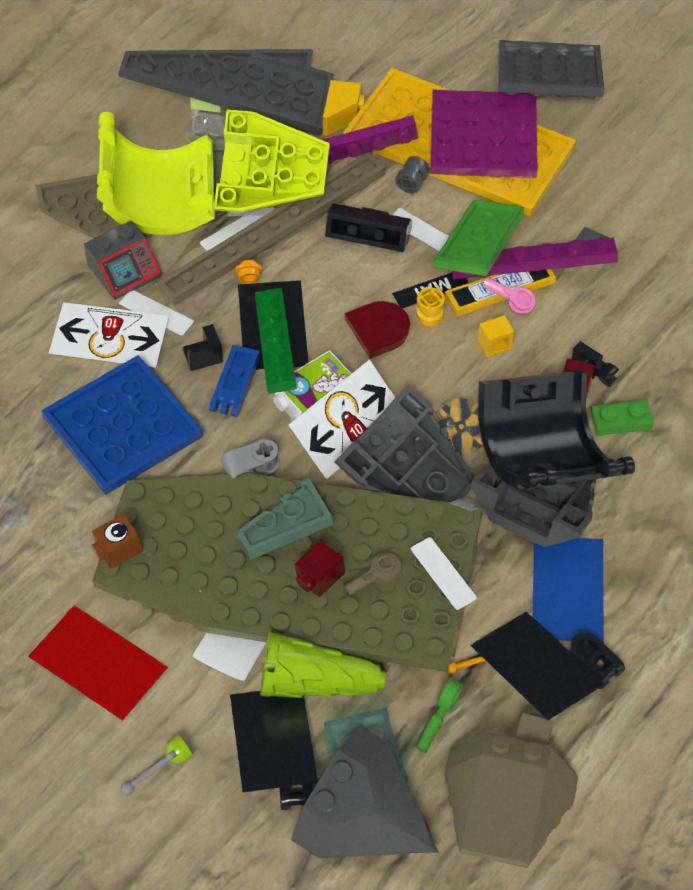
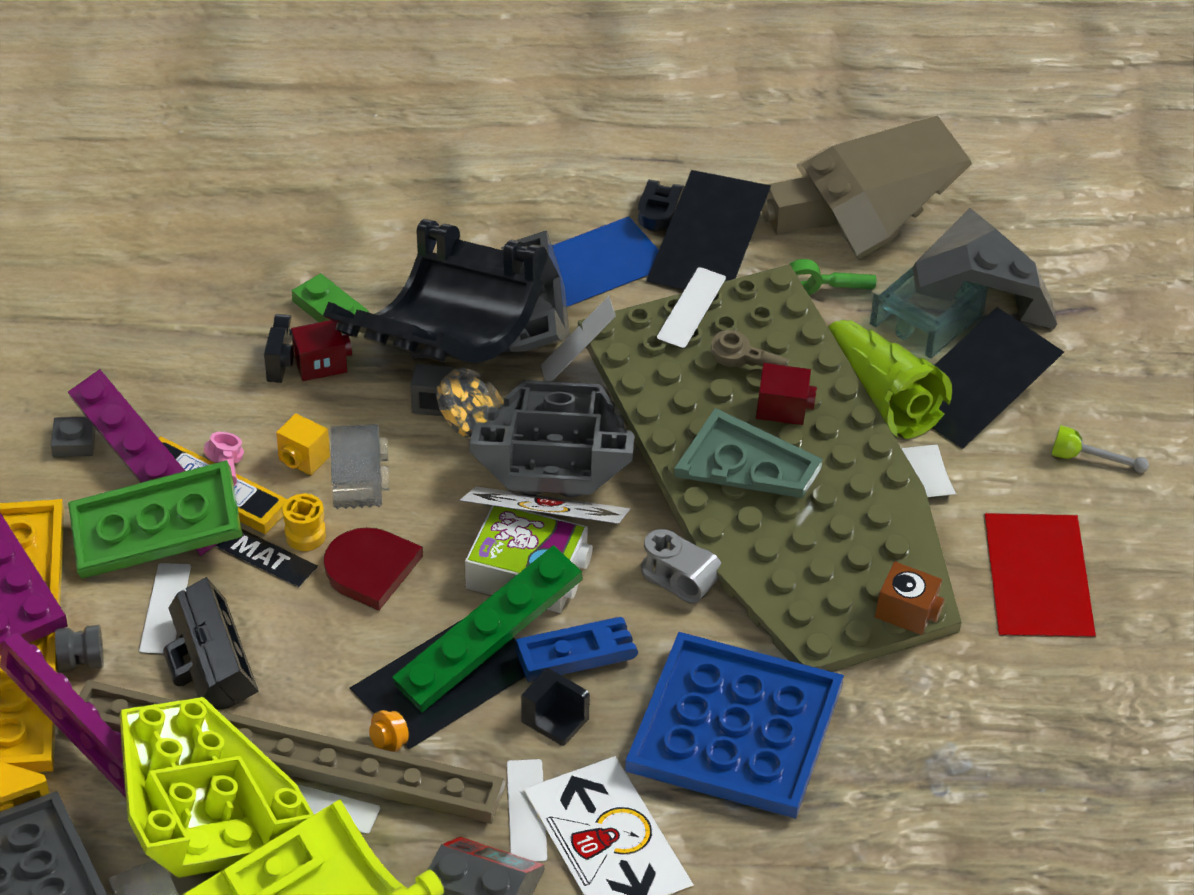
camera: 125 degrees left, 10 degrees down
(458, 352) = (357, 467): none -> clear brick

